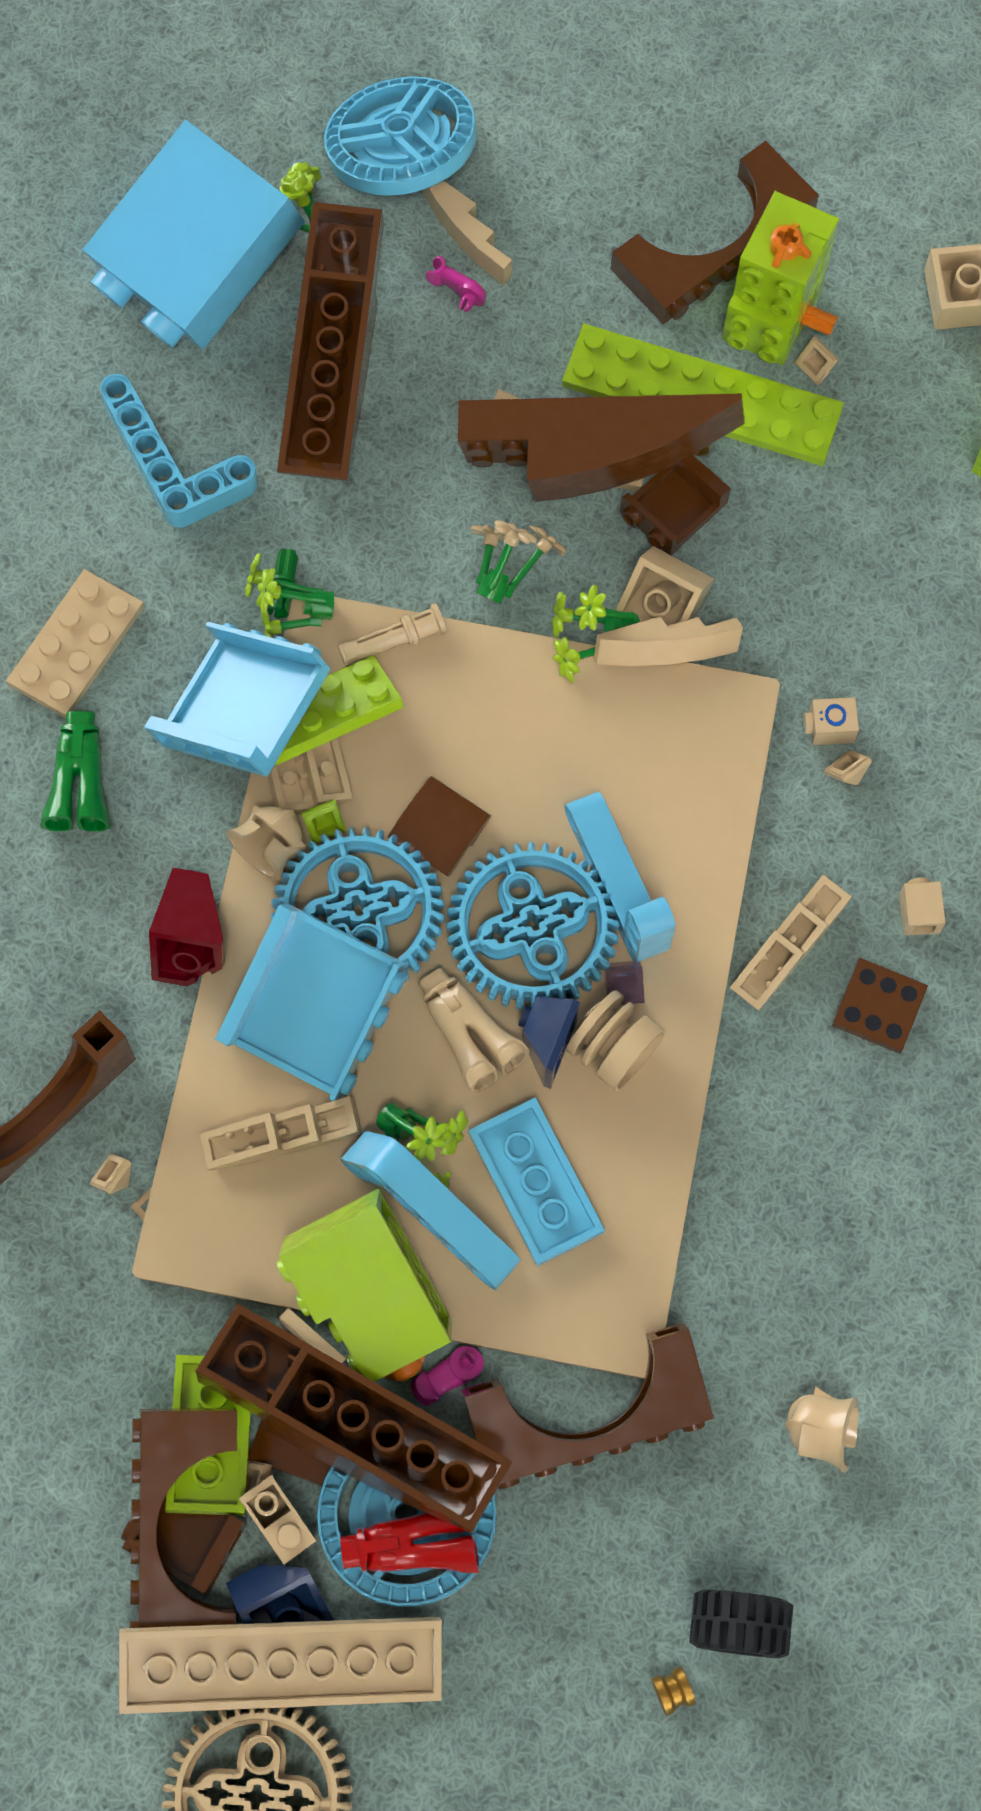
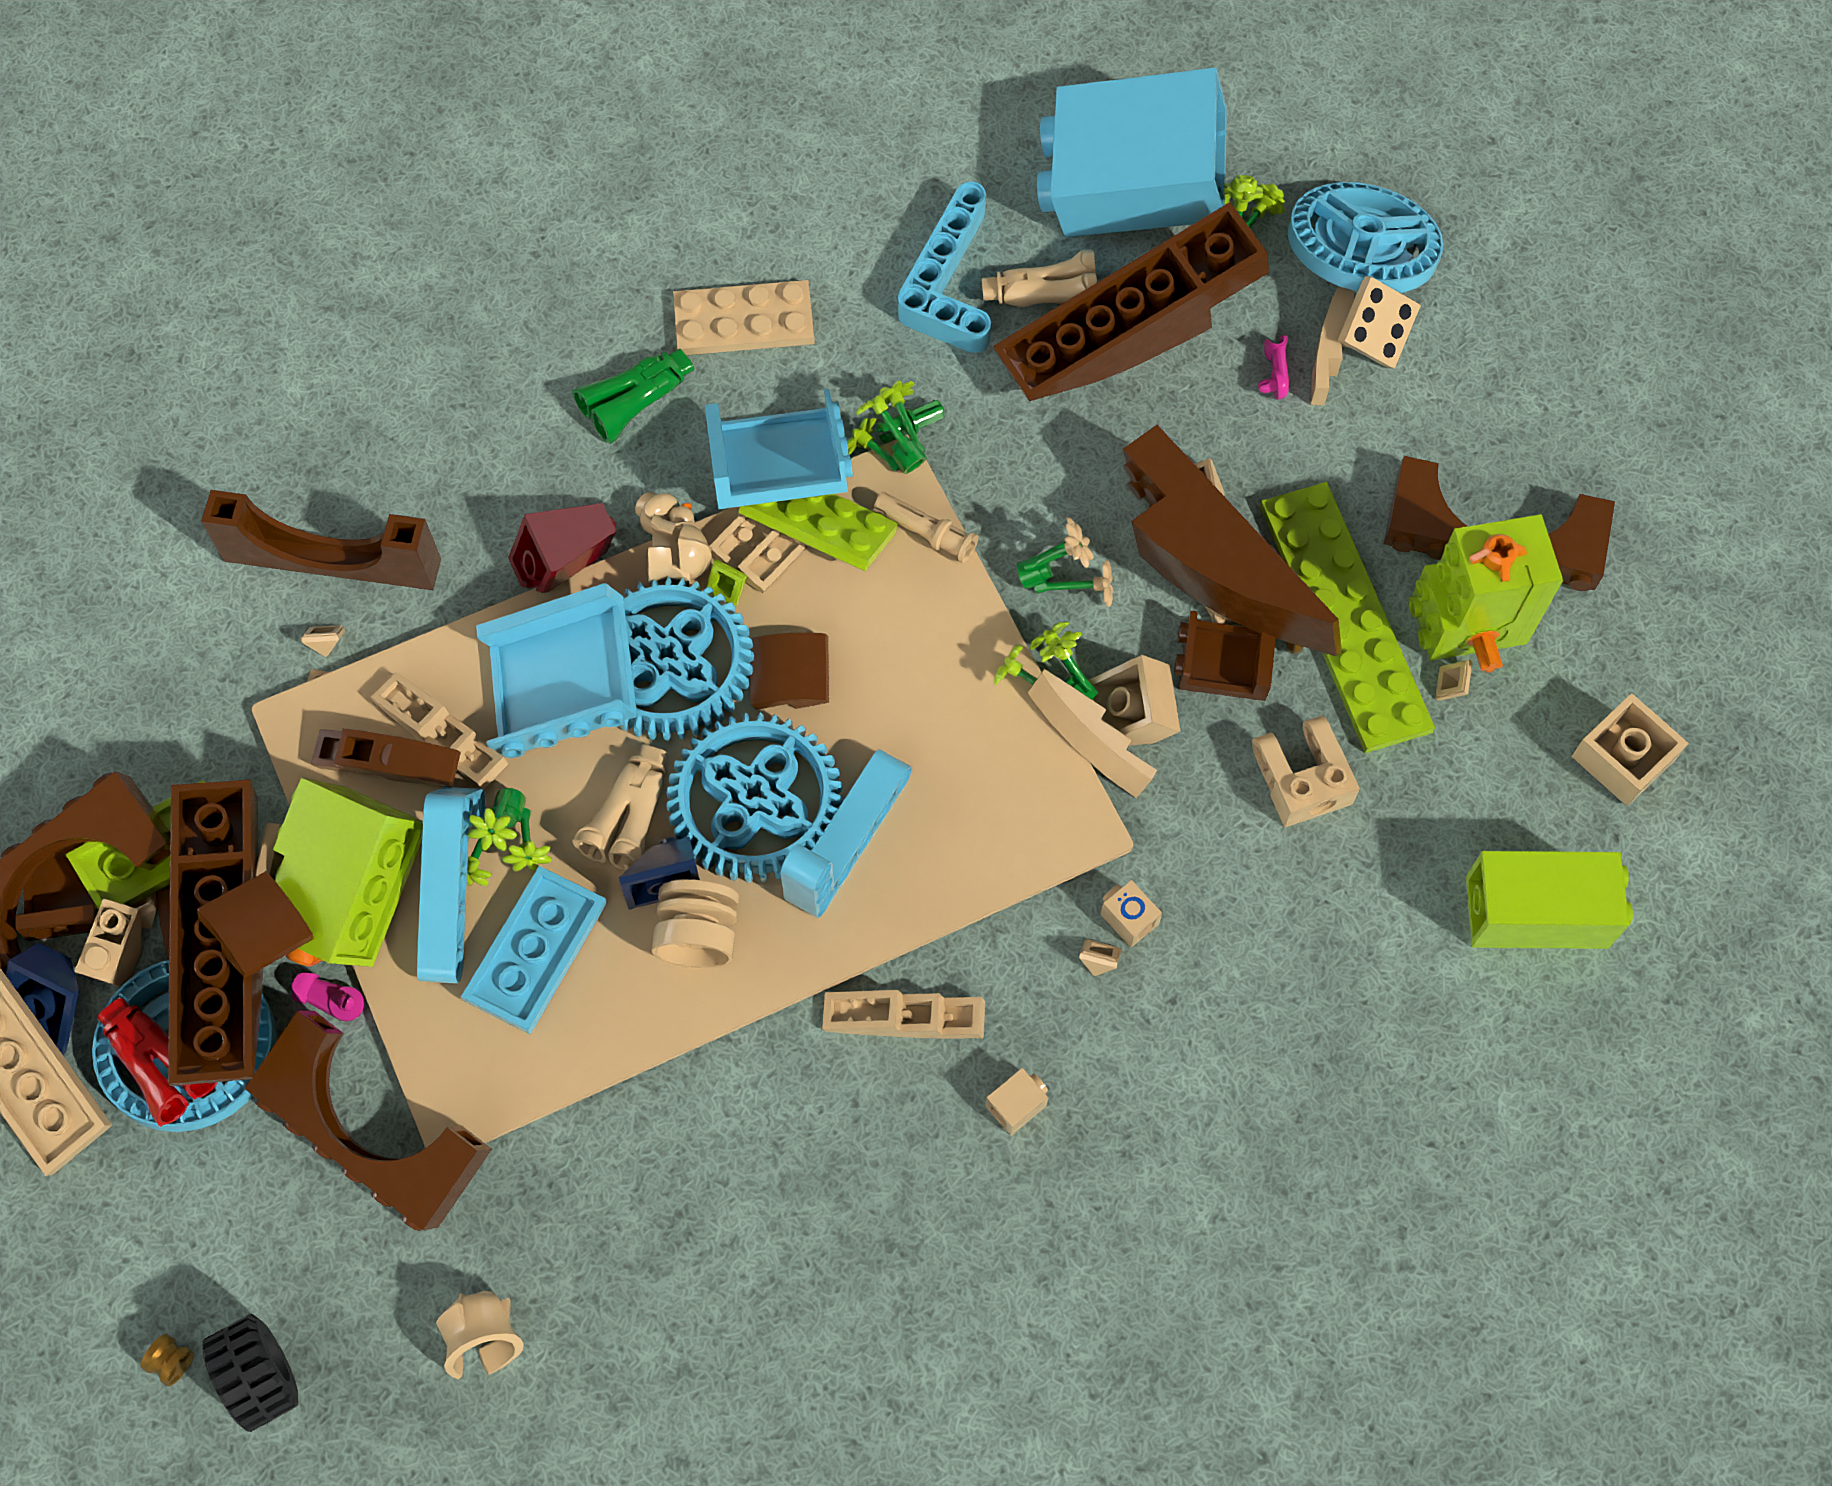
camera: 55 degrees right, 5 degrees down
(211, 828) = (664, 506): none -> tan animal
(251, 381) = (1042, 284): none -> tan piece
(278, 1190) = (386, 757): none -> reddish brown slope
(381, 1375) = (255, 924): none -> reddish brown slope
(484, 182) = (1379, 322): none -> tan tile
(626, 979) = (762, 903): slope -> none
(830, 534) = (1312, 790): none -> tan brick
(880, 1005) = (903, 1128): reddish brown tile -> none

